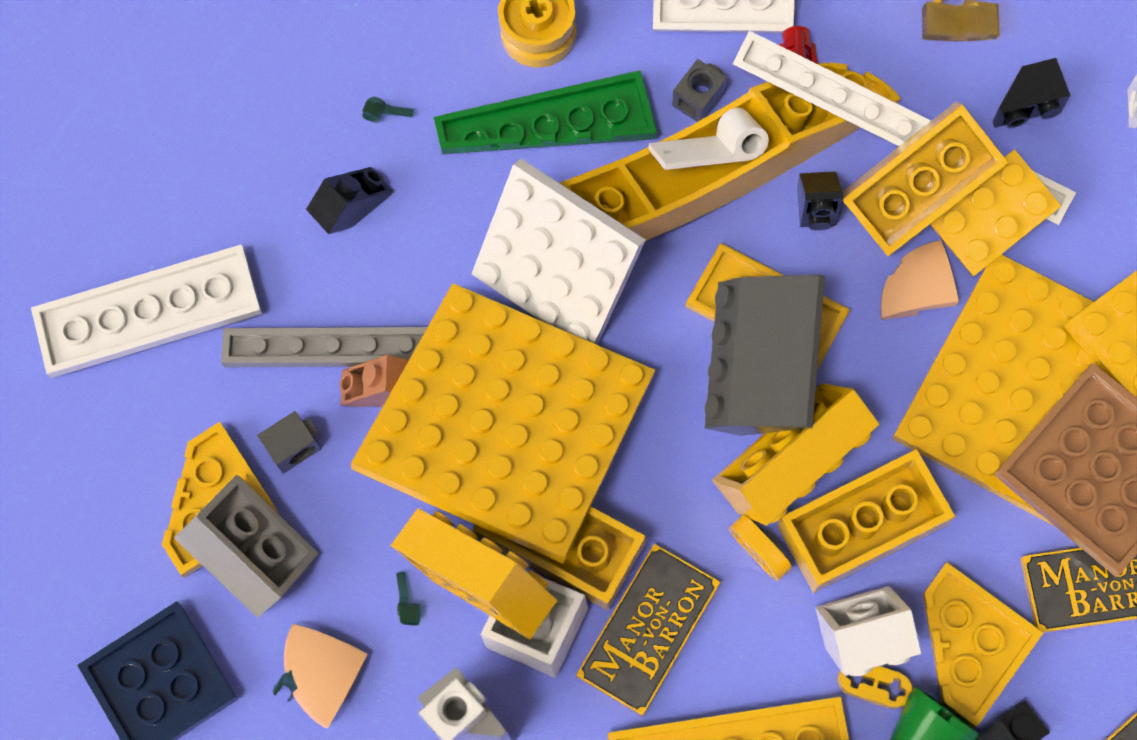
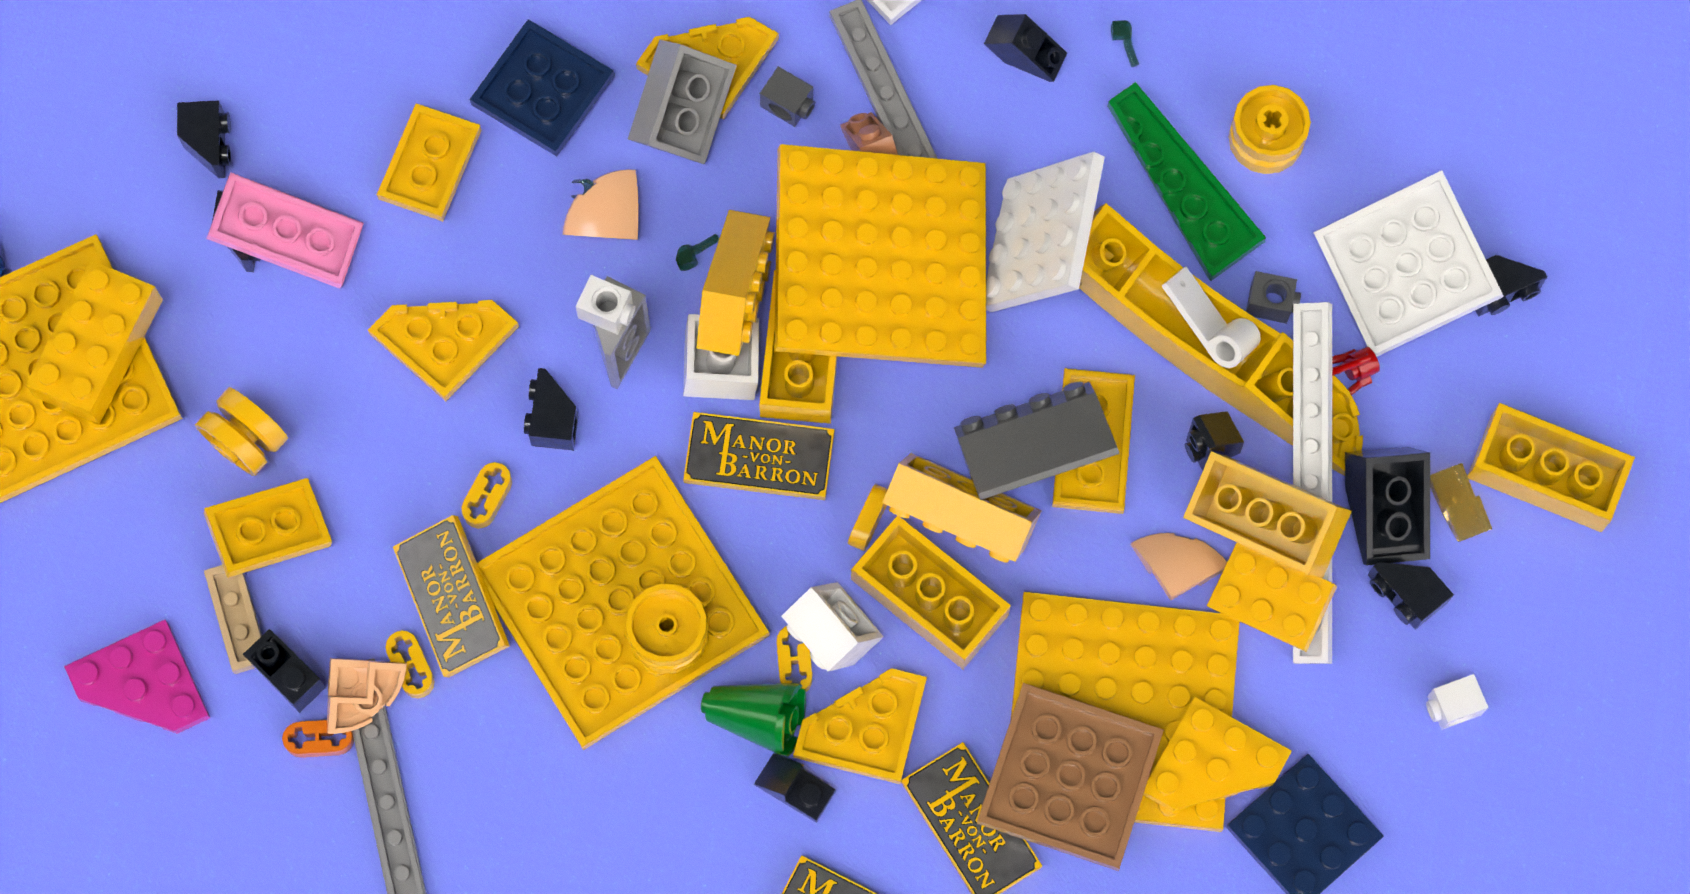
camera: 60 degrees right, 0 degrees up
(936, 70) = (1390, 503): none -> black slope

